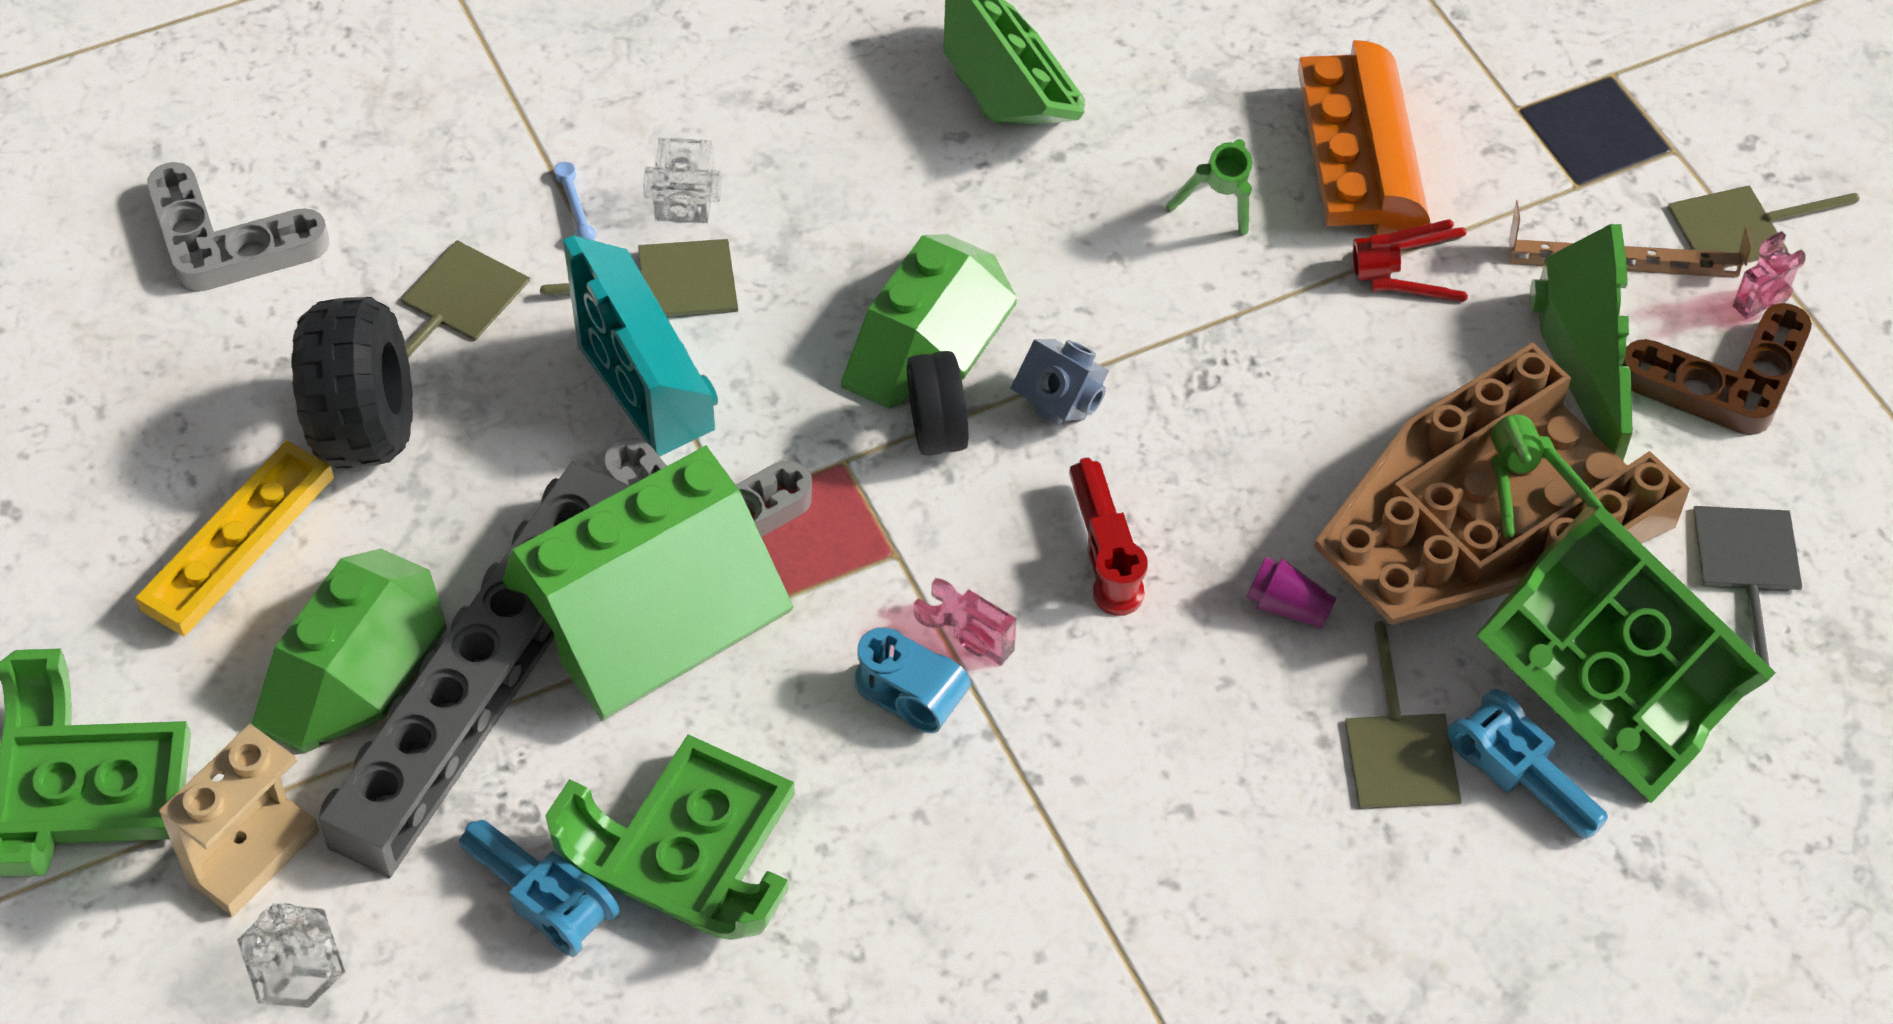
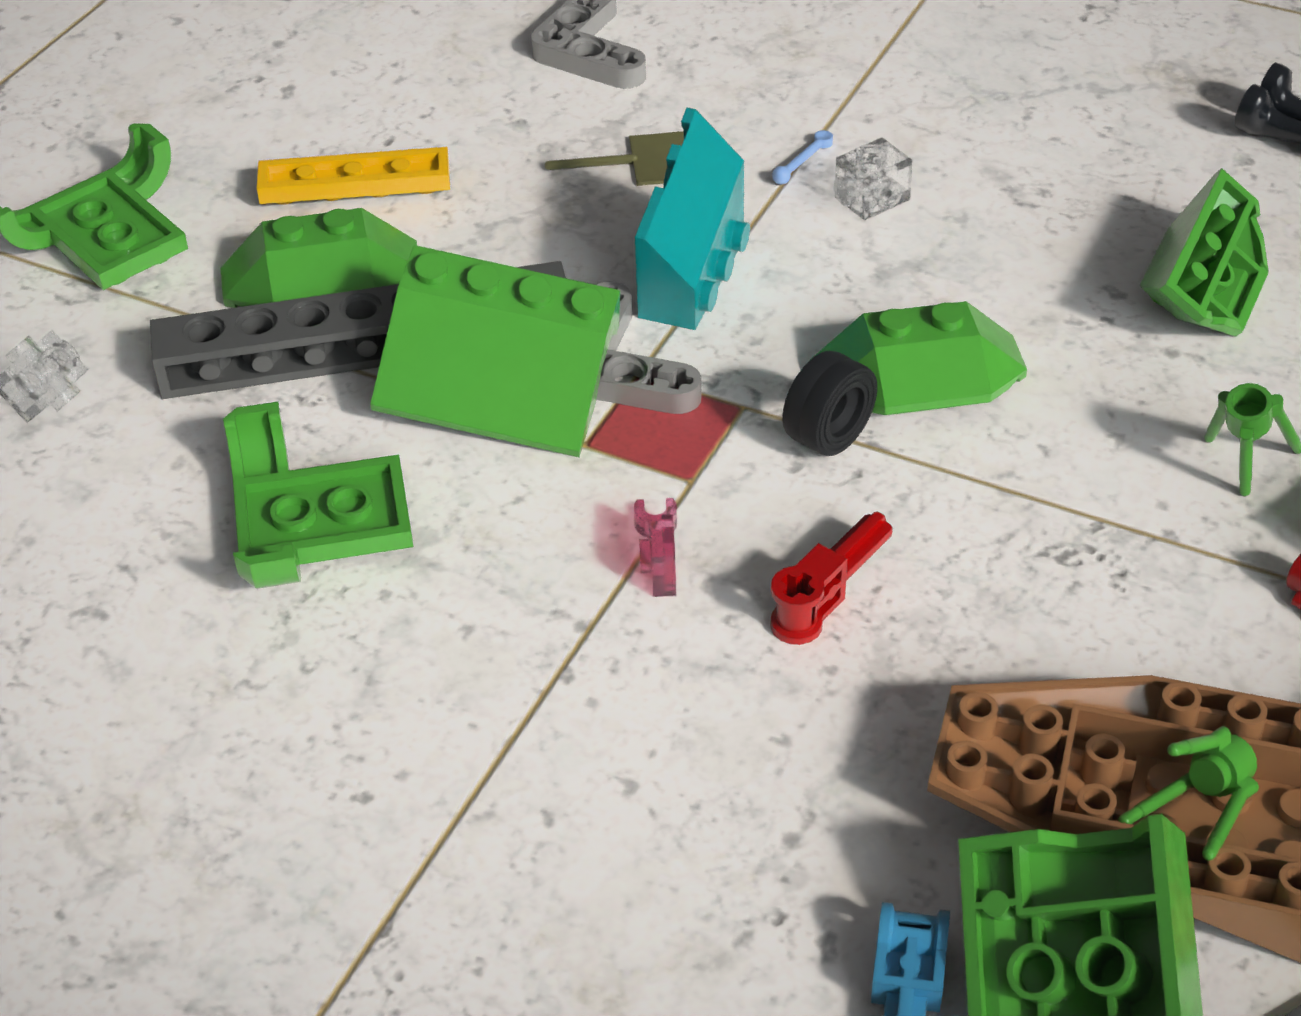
camera: 55 degrees right, 10 degrees down
(240, 828) = (110, 314): tan window -> none
(352, 382) = (477, 110): black tyre -> none
(544, 893) = (202, 471): dark azure connector -> none
(684, 277) = (804, 239): olive piece -> none
(913, 682) = (569, 538): dark azure piece -> none
(1061, 380) = (940, 458): sand blue brick -> none
(1290, 593) = (903, 717): magenta cone -> none
(1401, 756) = (832, 902): olive piece -> none

